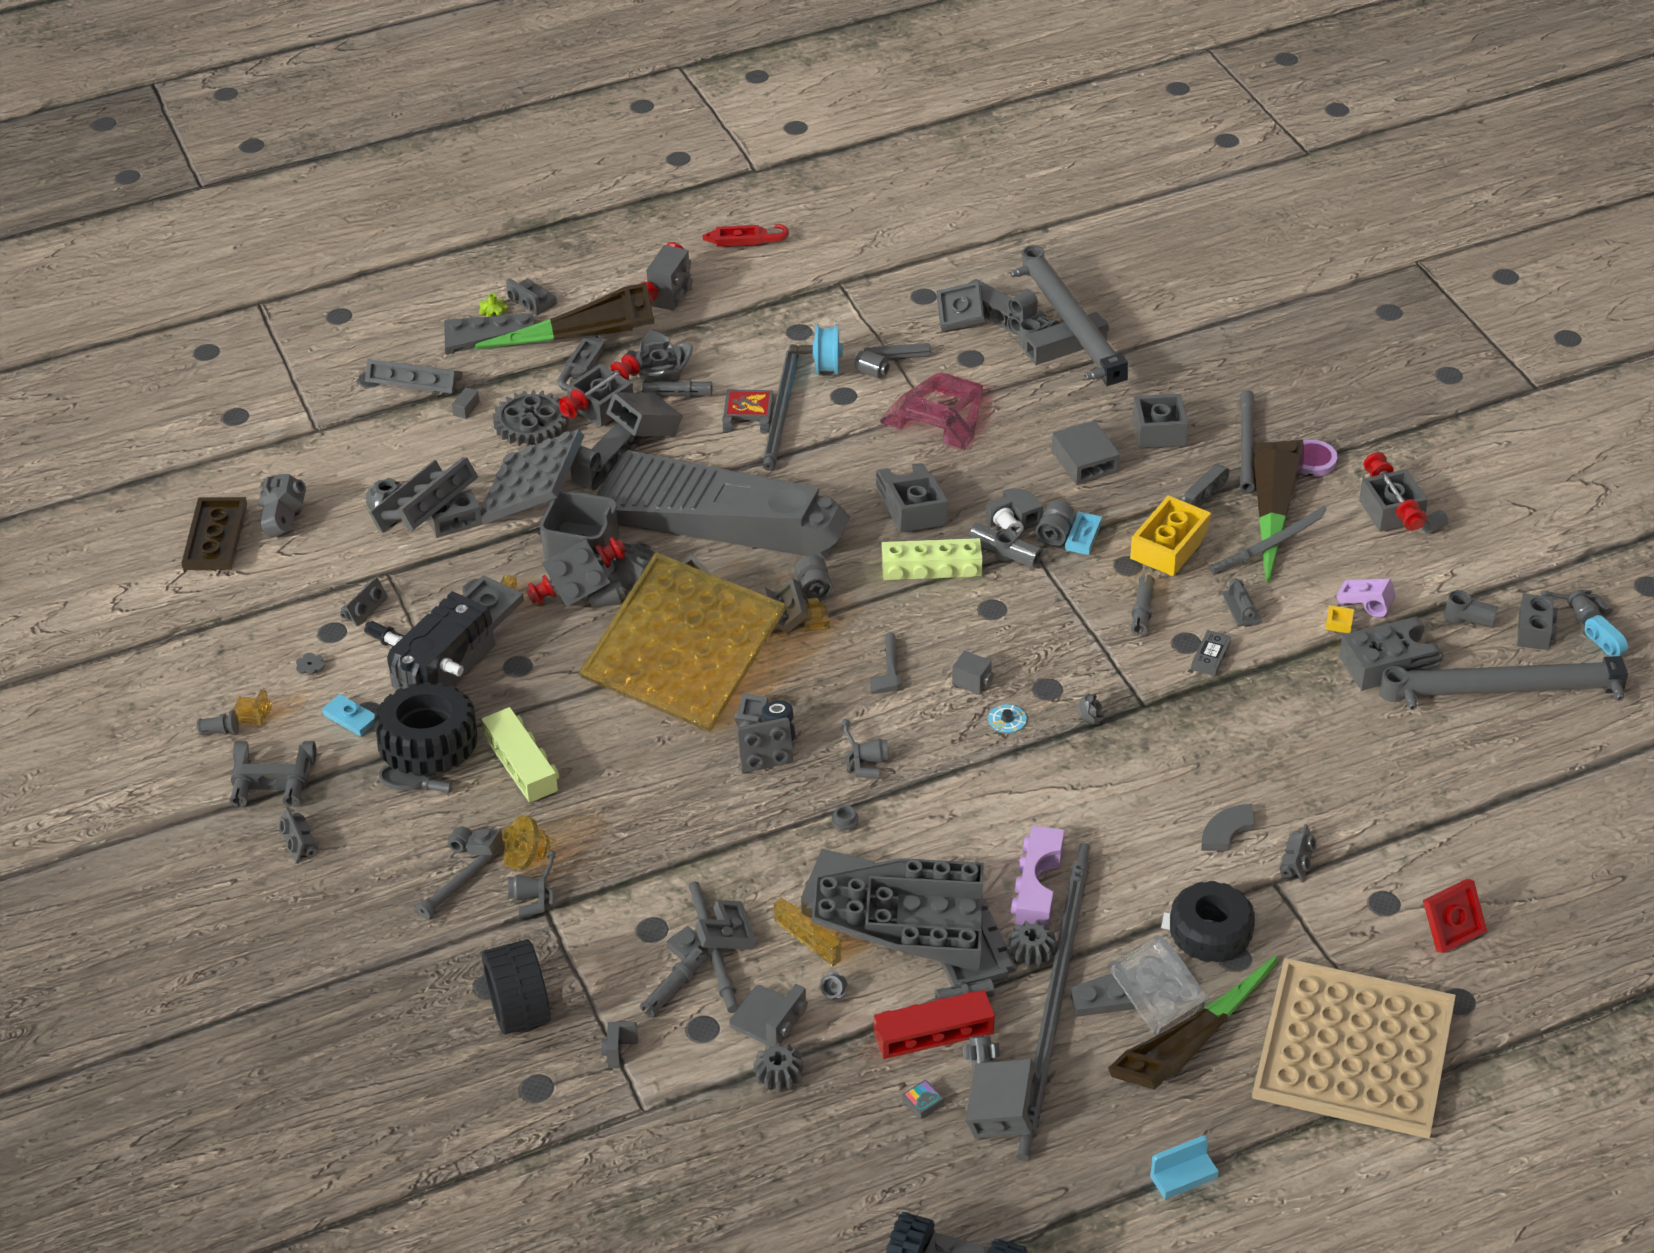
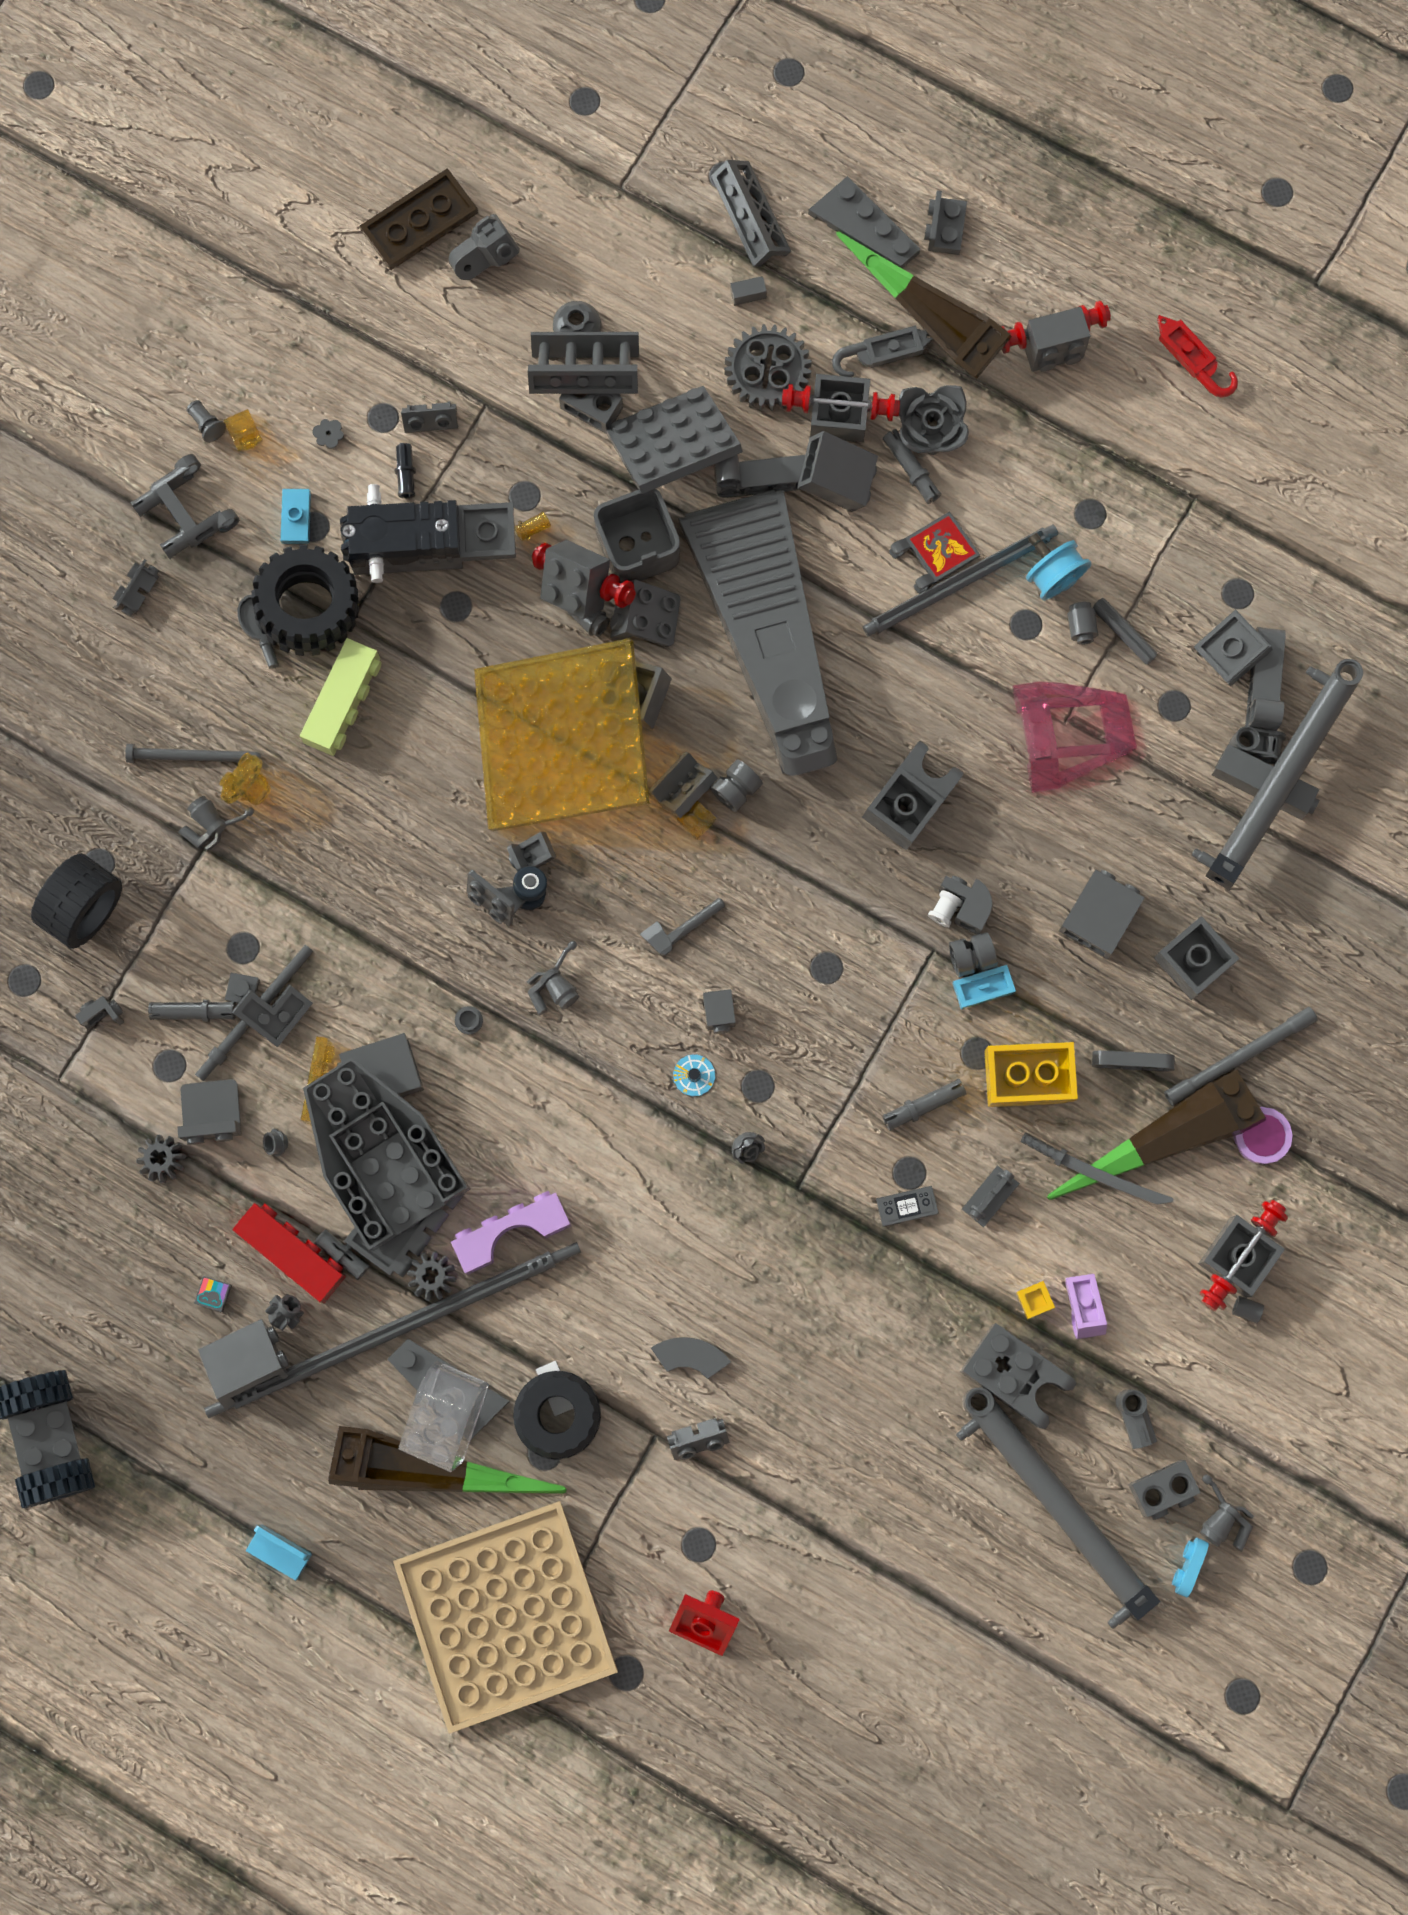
camera: 55 degrees right, 35 degrees up
(482, 842) = (227, 741): dark grey plate -> none
(492, 306) = (905, 202): lime plant -> none
(931, 559) = (842, 872): yellowish green brick -> none
(1006, 545) = (911, 944): dark grey piece -> none

